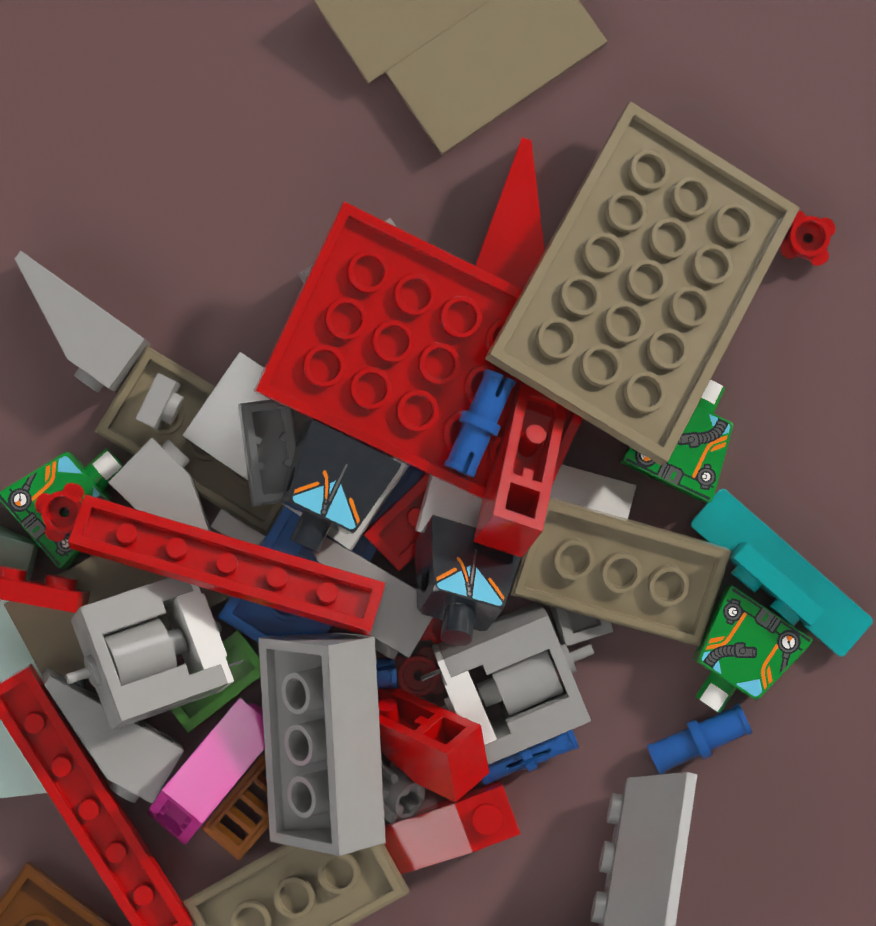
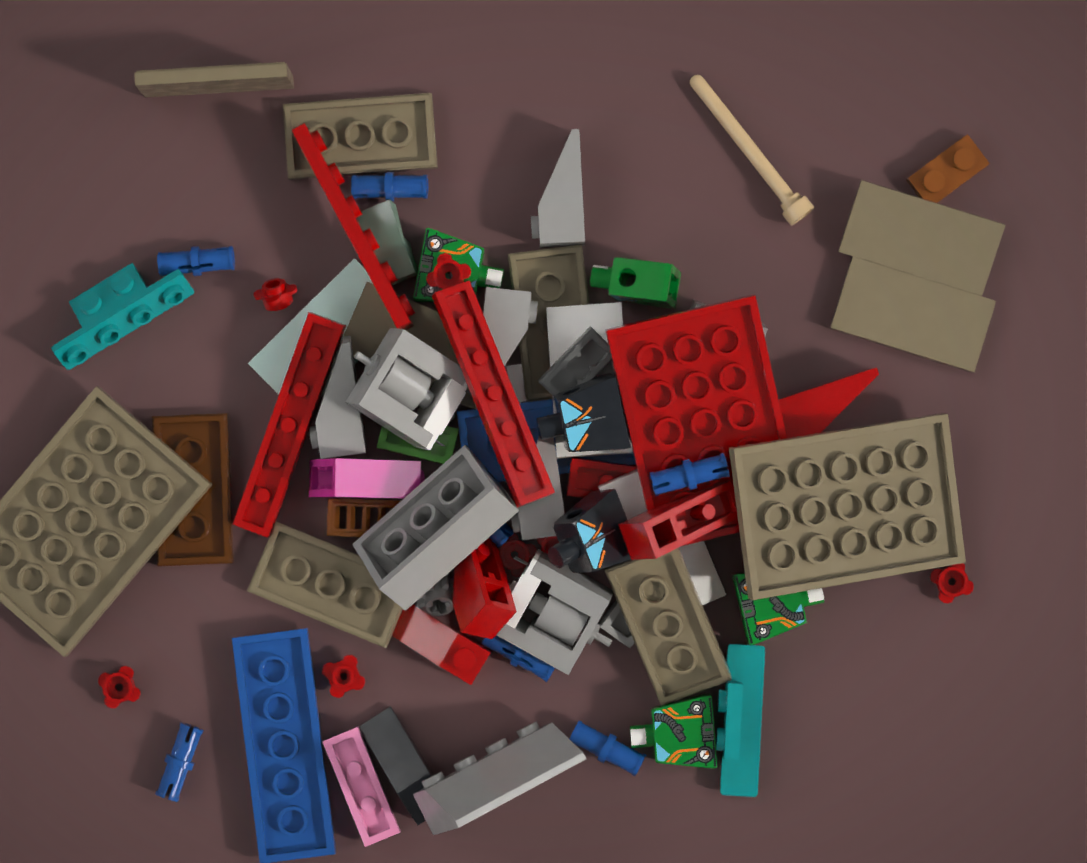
camera: 55 degrees right, 0 degrees up
(161, 402) = (555, 280): light grey plate -> none
(250, 303) = (654, 284): none -> green torso
(282, 90) = (793, 204): none -> tan piece

